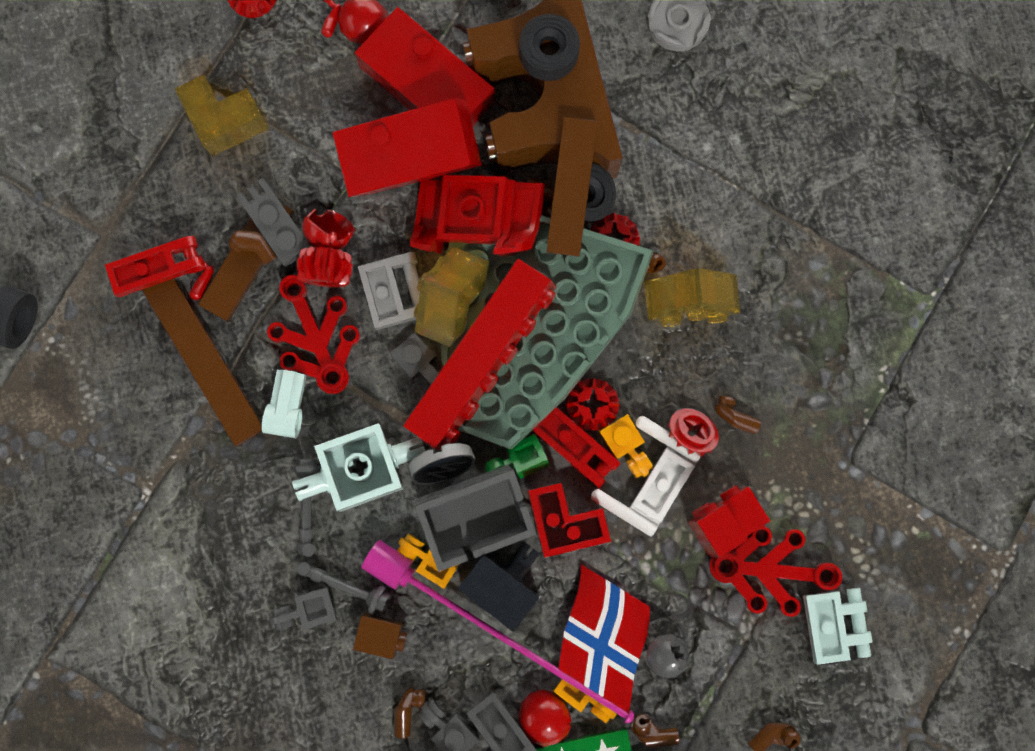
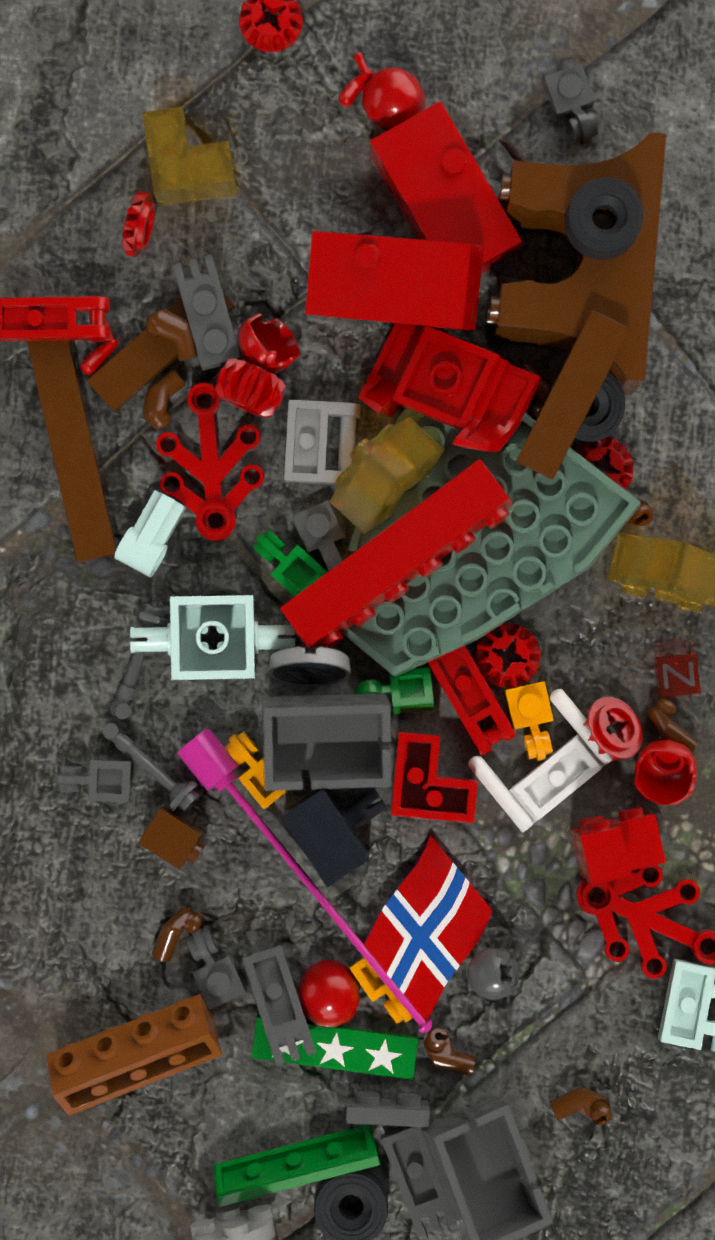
camera: 20 degrees right, 5 degrees up
(199, 173) = (138, 224): none -> red gear
(257, 300) = (157, 400): none -> reddish brown arm
(405, 394) = (296, 570): none -> green plate
(727, 375) = (677, 675): none -> clear red tile
(745, 451) = (665, 772): none -> red hair

